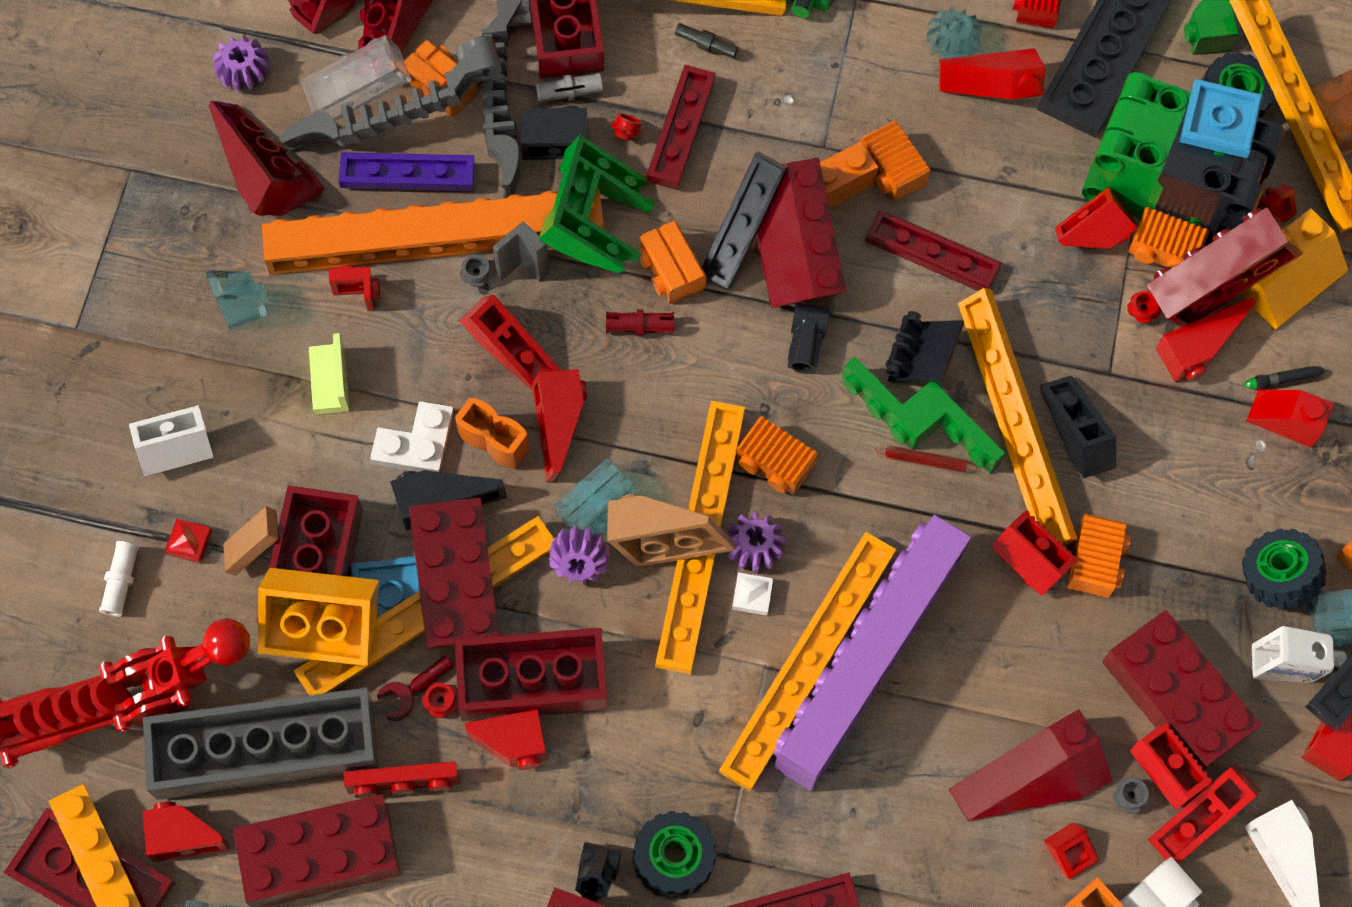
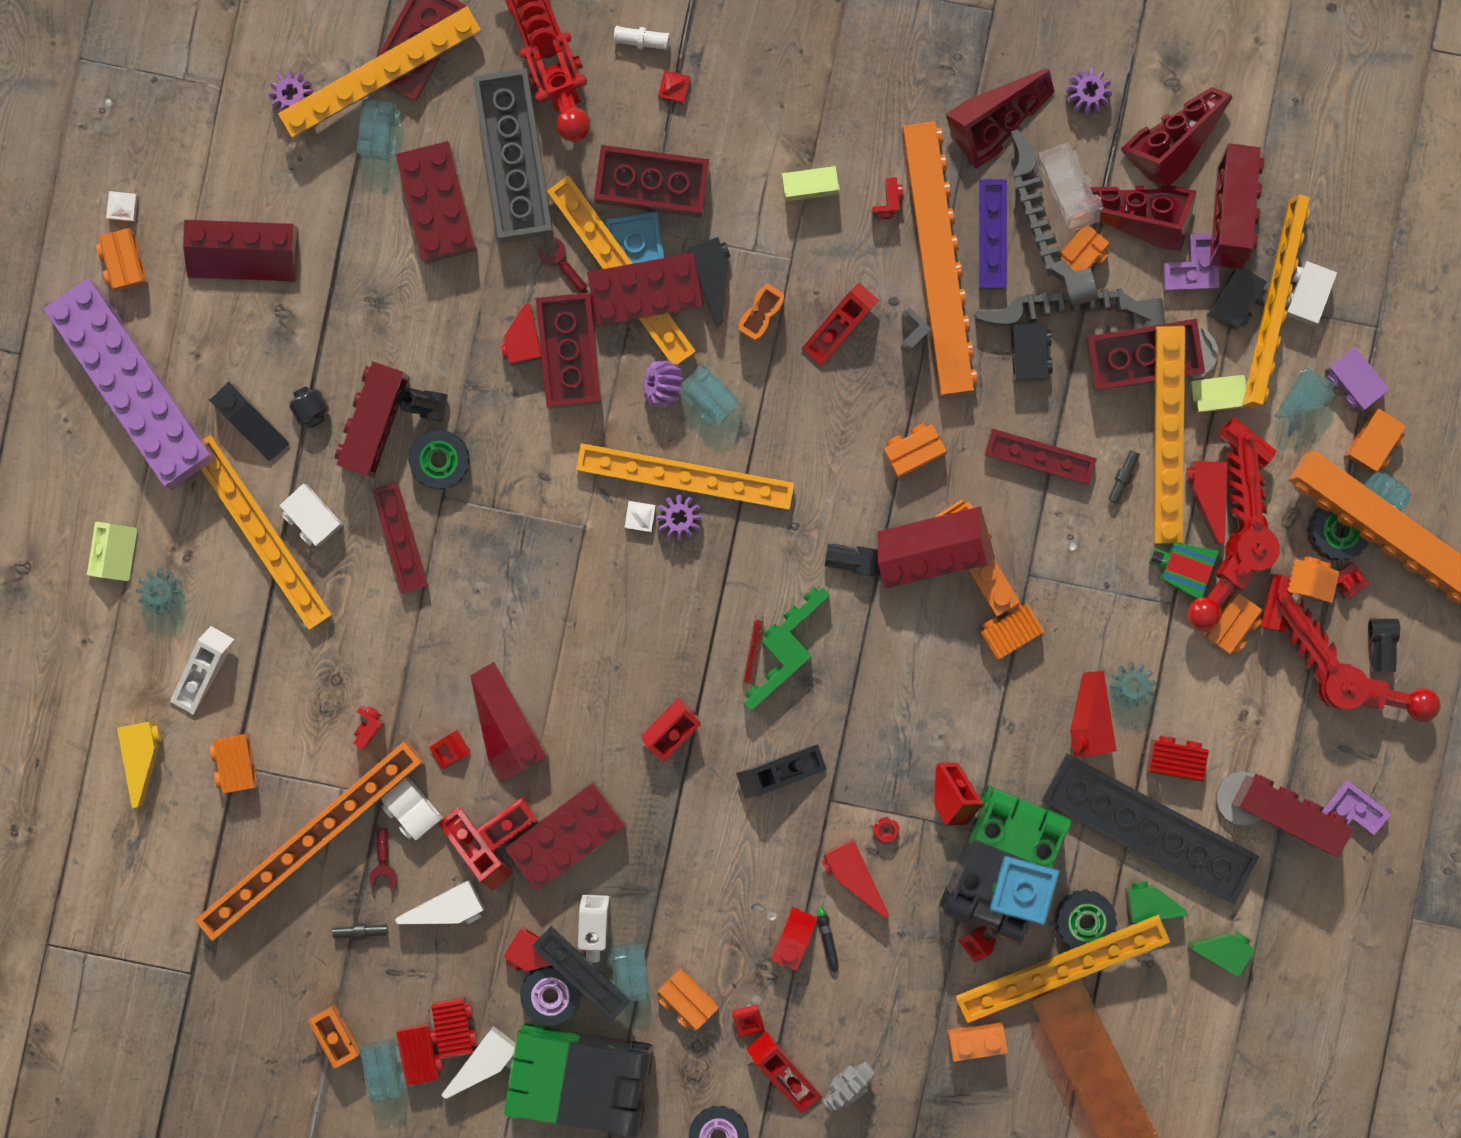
camera: 90 degrees right, 20 degrees up
(170, 440) = (749, 66): white brick -> none
(177, 833) = (449, 101): red slope -> none
(238, 296) = (873, 107): clear light blue slope -> none
(250, 541) = (668, 134): medium nougat tile -> none
(317, 616) = (601, 189): light orange slope -> none
(401, 779) = (490, 259): red plate -> none
(416, 450) = (752, 258): white plate -> none
(436, 691) = (559, 280): red plate -> none
(472, 263) = (901, 288): dark grey plate -> none
(557, 406) = (781, 364): red slope -> none
(567, 224) = (927, 364): green wedge -> none
(592, 85) = (1075, 363): light grey pin -> none
(626, 126) = (1039, 411): red plate -> none
(639, 322) = (863, 426): dark red pin -> none
(660, 532) = (679, 435): medium nougat slope -> none
(743, 219) = (943, 506): black tile -> none
(776, 456) = (749, 533): orange brick -> none
(807, 661) = (588, 558): light orange plate -> none
(867, 658) = (588, 604): medium lavender brick -> none
(922, 349) = (839, 650): black hinge -> none
(932, 251) = (932, 662): dark red tile -> none
(1016, 415) = (786, 722): light orange plate -> none
(1098, 556) = (673, 781): orange brick -> none
(1135, 786) = (495, 790): dark grey plate -> none
(1165, 238) = (942, 852): orange brick -> none
(1224, 267) = (904, 889): brick -> none
(1290, 586) = (673, 910): black wheel -> none
(1304, 278) = (919, 952): light orange slope -> none

